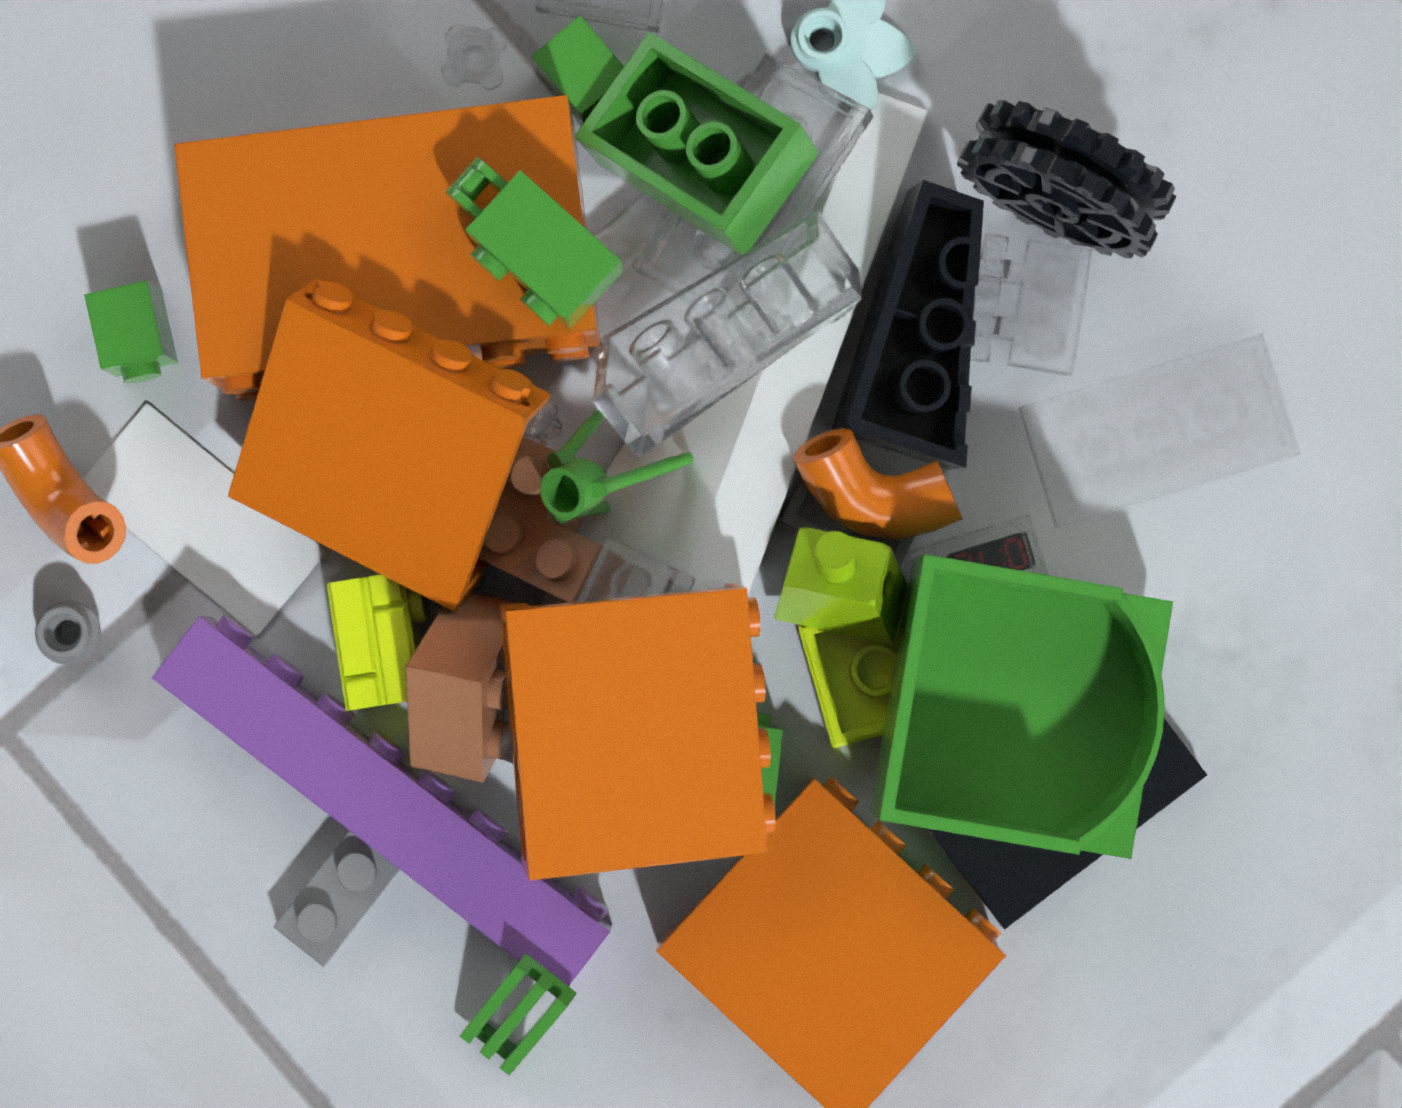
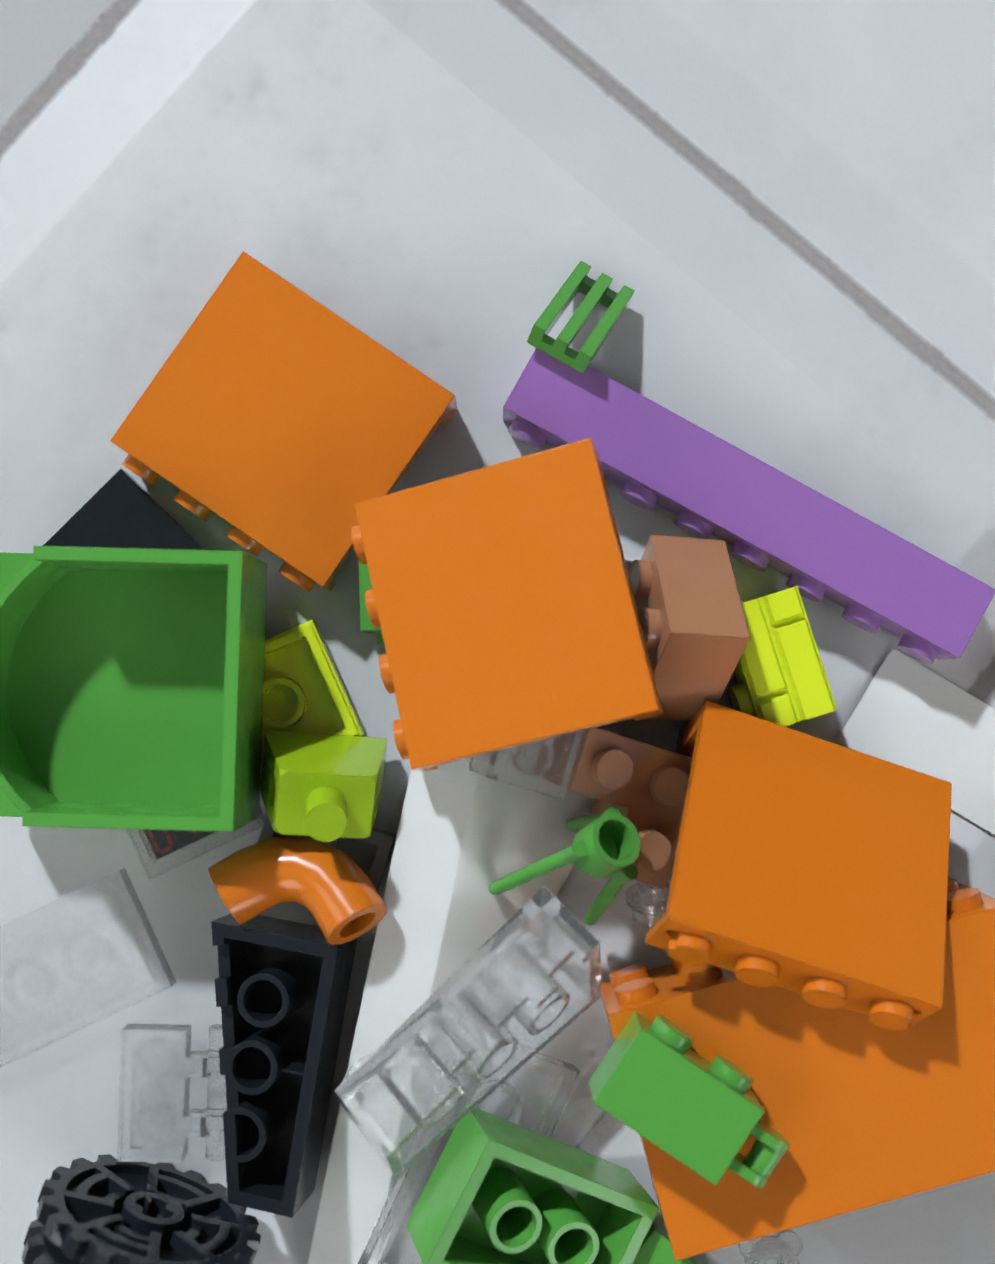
camera: 175 degrees right, 0 degrees up
(336, 898) = (775, 402): light grey plate -> none

